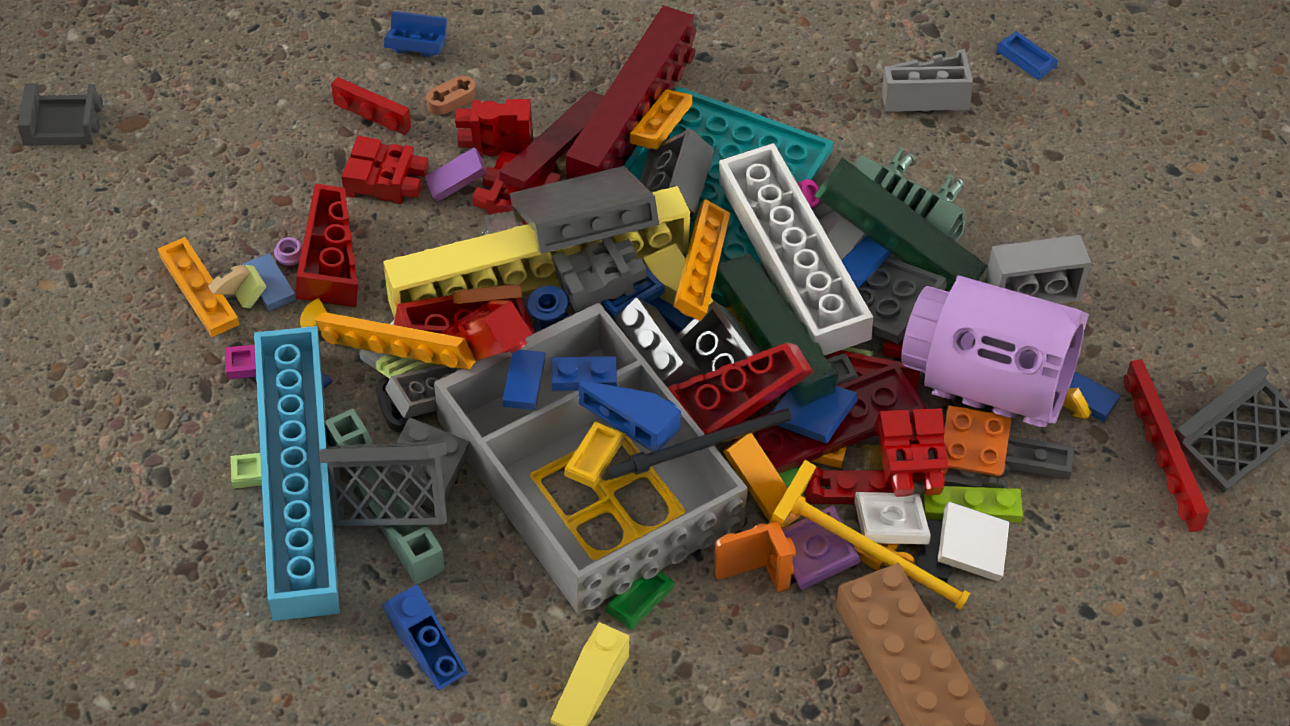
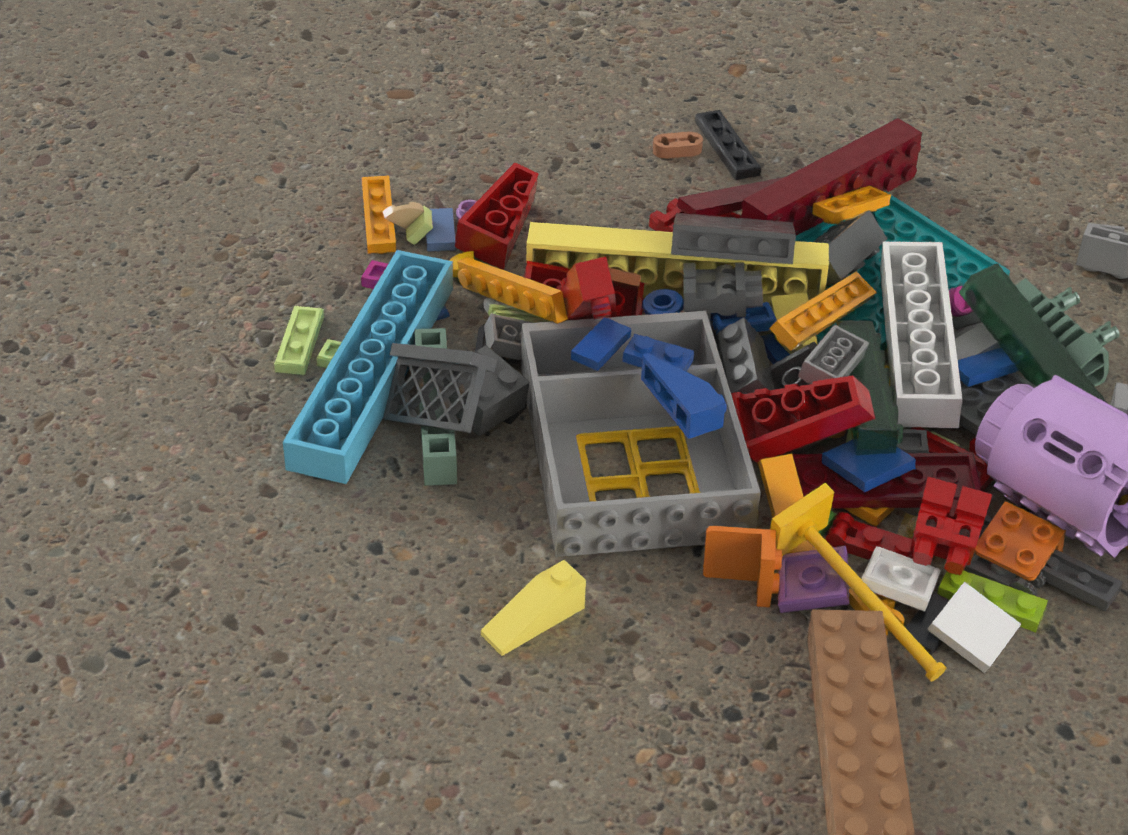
camera: 25 degrees right, 10 degrees down
(59, 117) = (342, 72): dark grey panel -> none
(200, 466) = (299, 340): none -> yellowish green tile
(371, 106) = (602, 131): red plate -> none
(383, 170) = (583, 178): red hips -> none
(416, 33) = (673, 91): blue bracket -> none
(424, 636) = (405, 522): blue slope -> none
(455, 174) = (645, 197): medium lavender tile -> none
(495, 126) = (697, 168): red hips -> none
(496, 74) = (728, 145): none -> black tile
(594, 454) = (630, 419): yellow tile -> none
(639, 599) = (621, 565): green tile -> none
(642, 462) = (668, 438): black bar -> none
(745, 318) = (834, 356): none -> light grey piece

